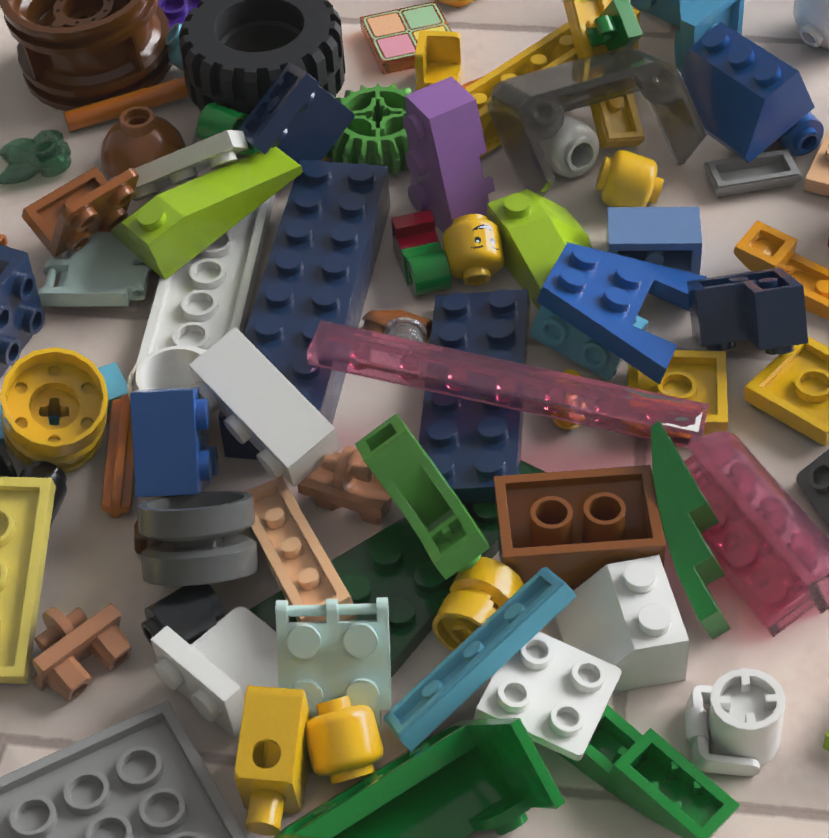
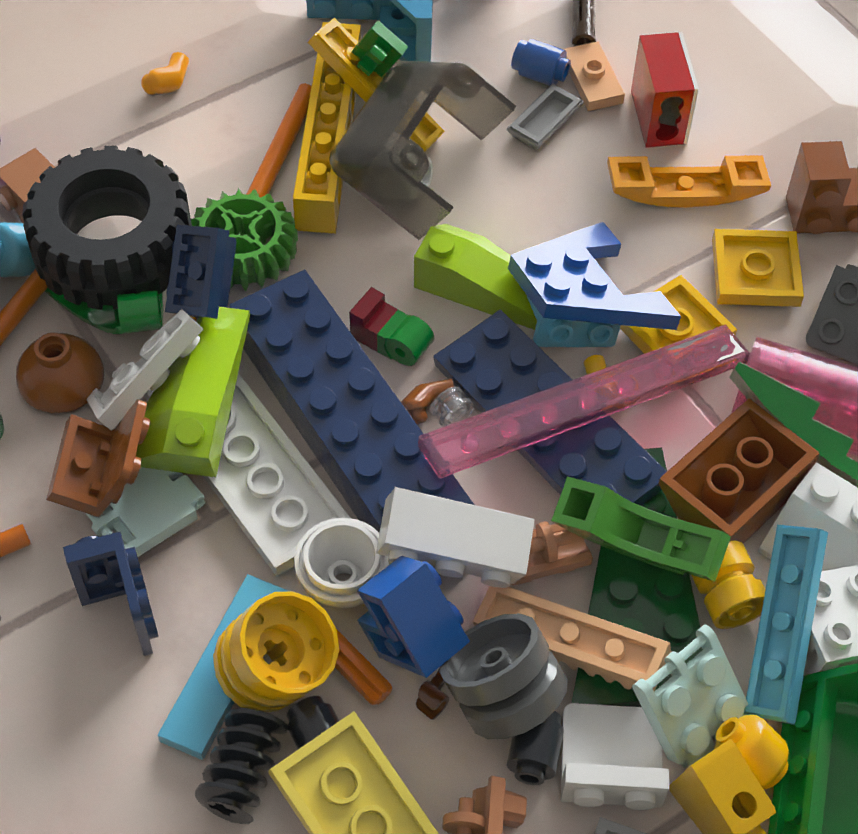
camera: 45 degrees left, 10 degrees up
(395, 34) = (172, 135): tile -> none
(437, 57) = (226, 154): yellow panel -> none
(445, 153) = (353, 238): medium lavender wedge -> none
(473, 249) = (430, 298): yellow head -> none
(628, 180) = (476, 175): yellow head -> none
(657, 235) = (543, 212): medium blue brick -> none
(743, 91) = (504, 48): blue slope -> none
(749, 306) = (676, 226): dark blue brick -> none

